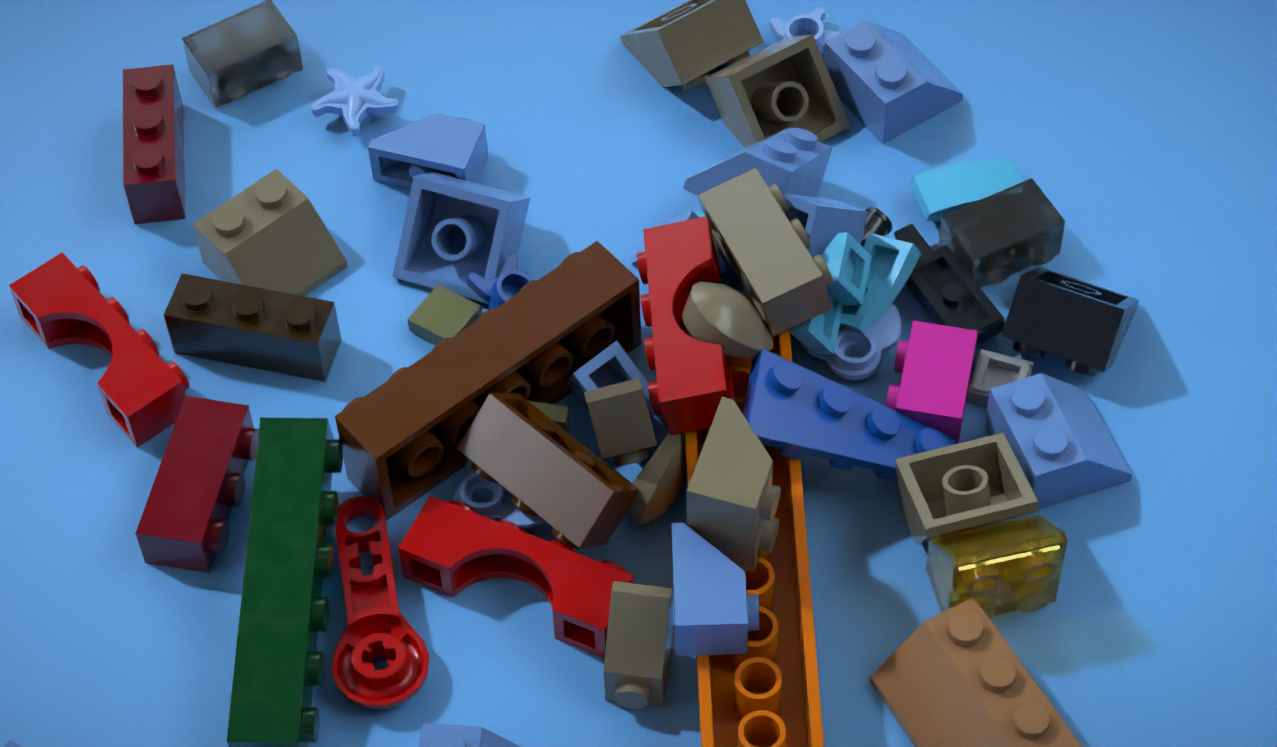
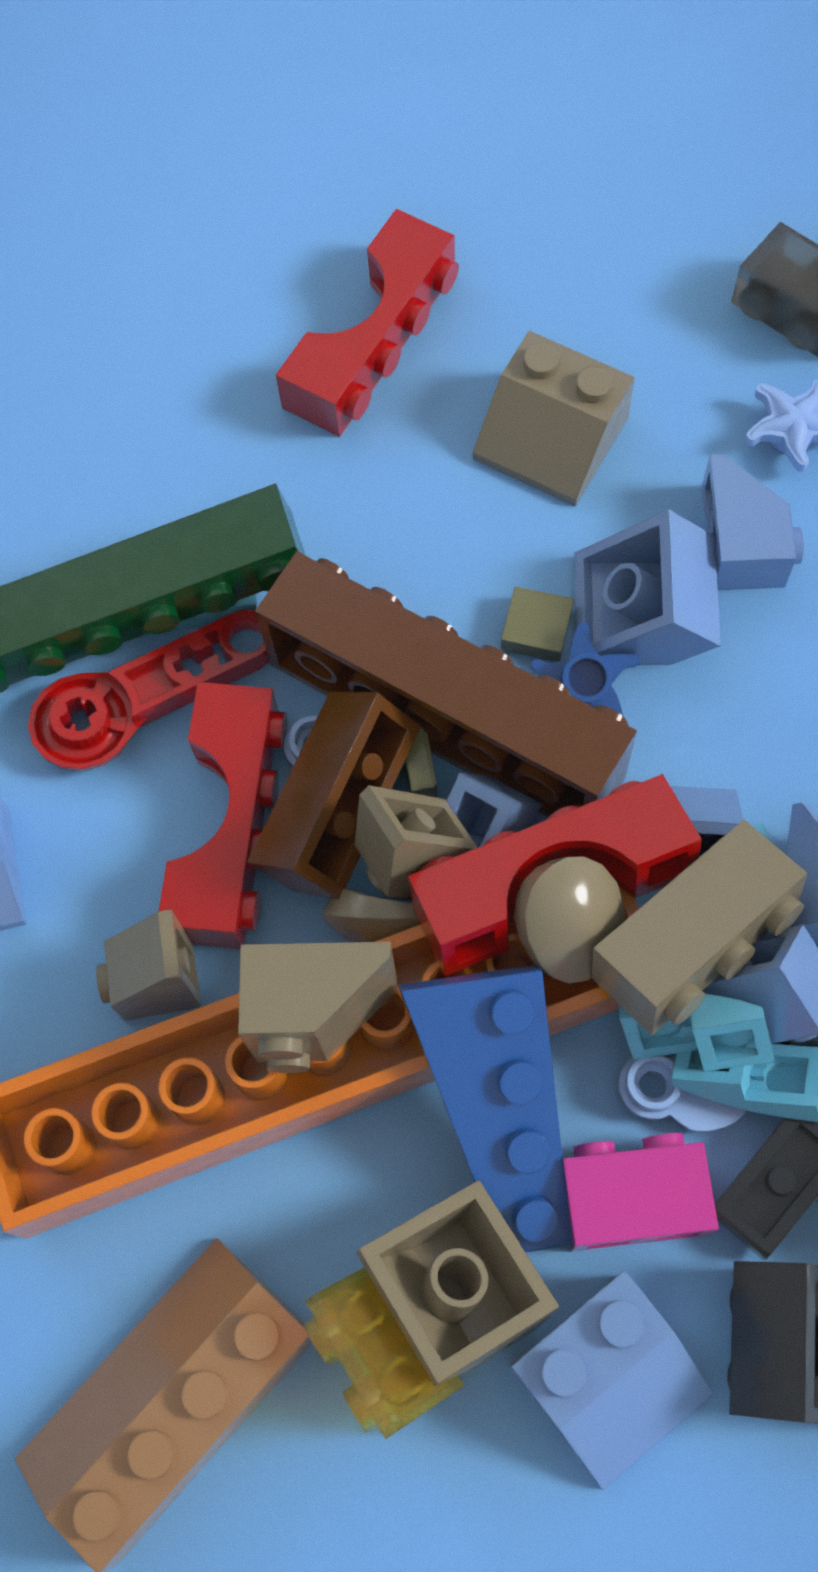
camera: 75 degrees right, 15 degrees up
(153, 144) = (640, 259): dark red brick -> none
(198, 485) = (222, 463): dark red brick -> none
(253, 327) = (441, 444): dark brown brick -> none
(709, 598) = (179, 1021): medium blue slope -> none
(993, 371) = (685, 1277): light grey tile -> none

